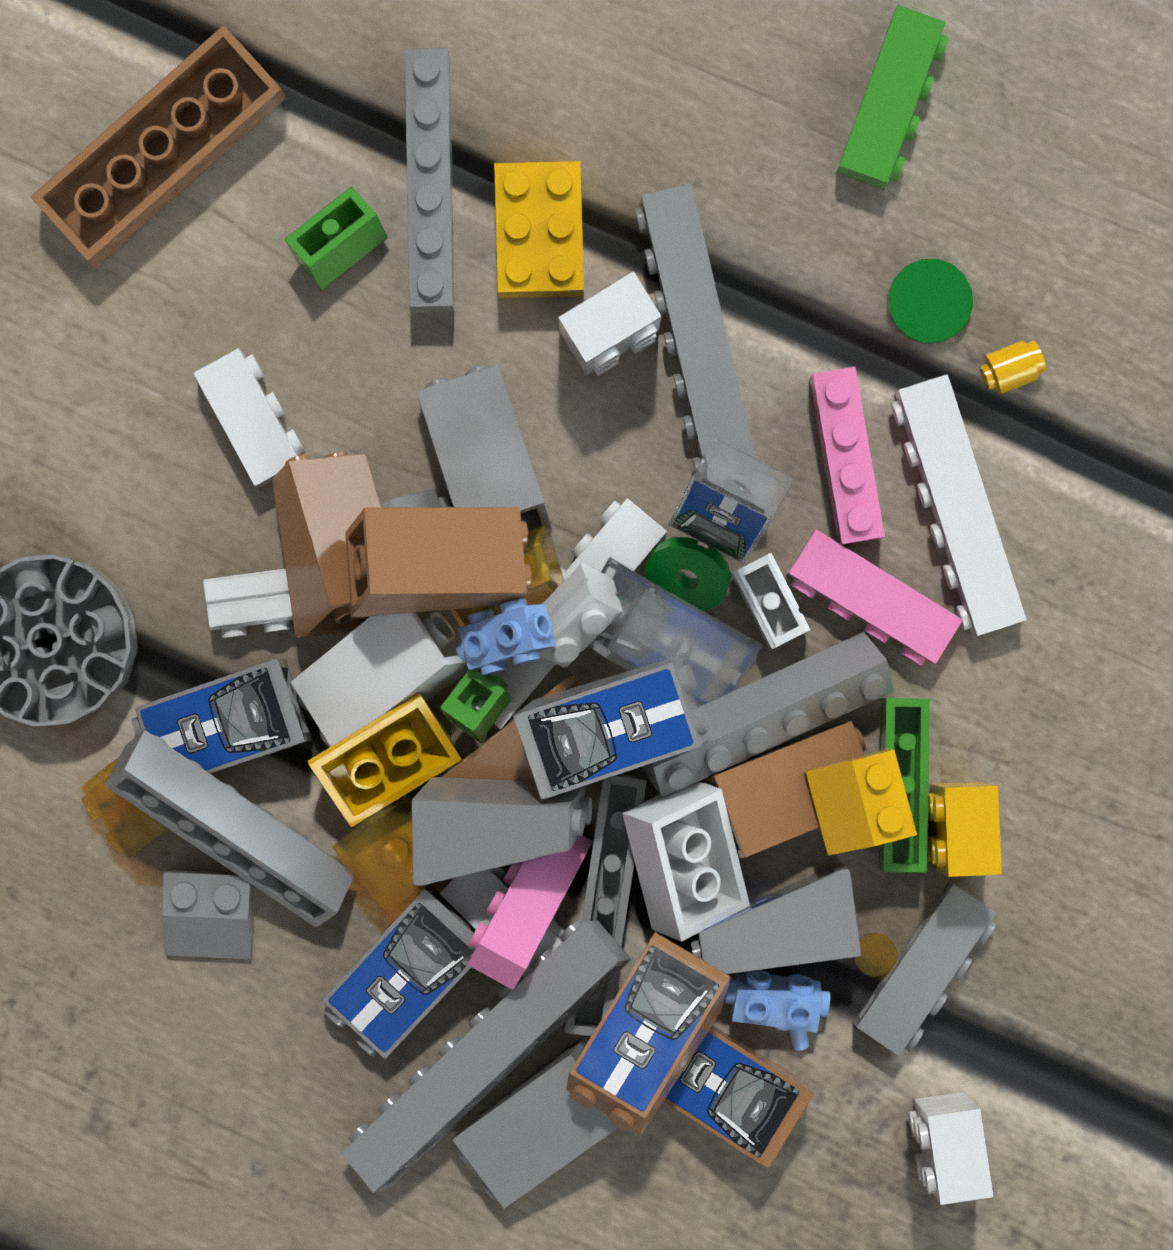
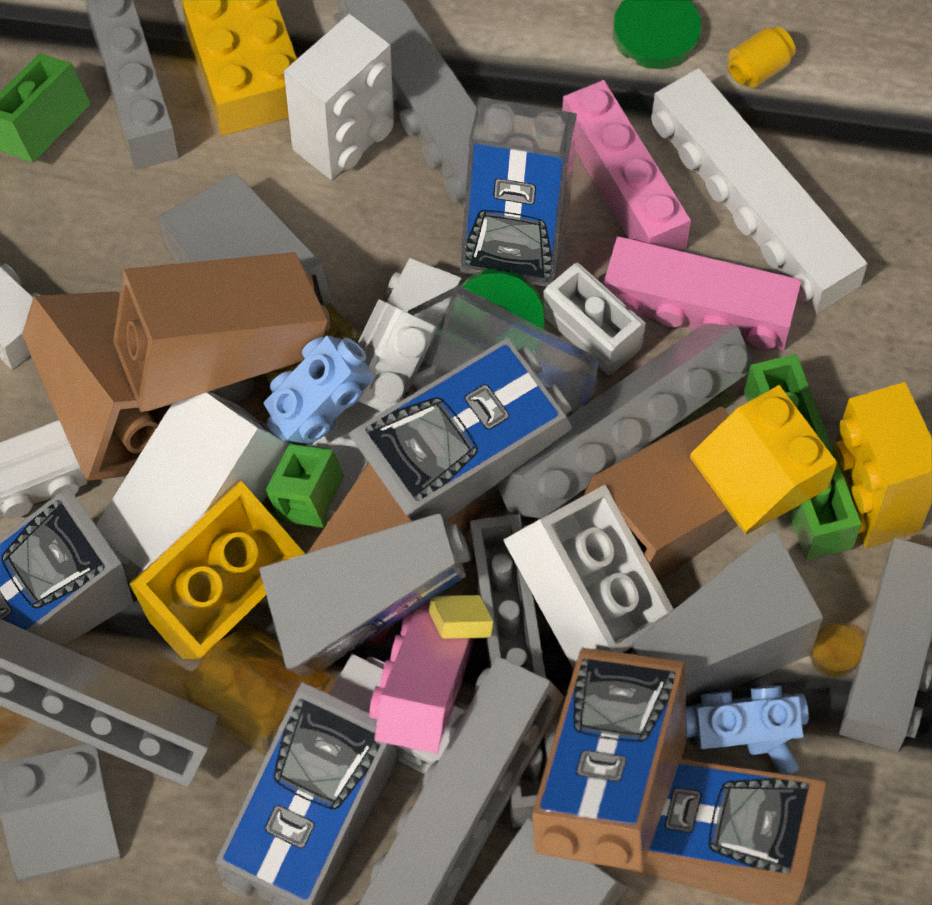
camera: 20 degrees left, 25 degrees down
(572, 865) = (460, 616): none -> light yellow tile

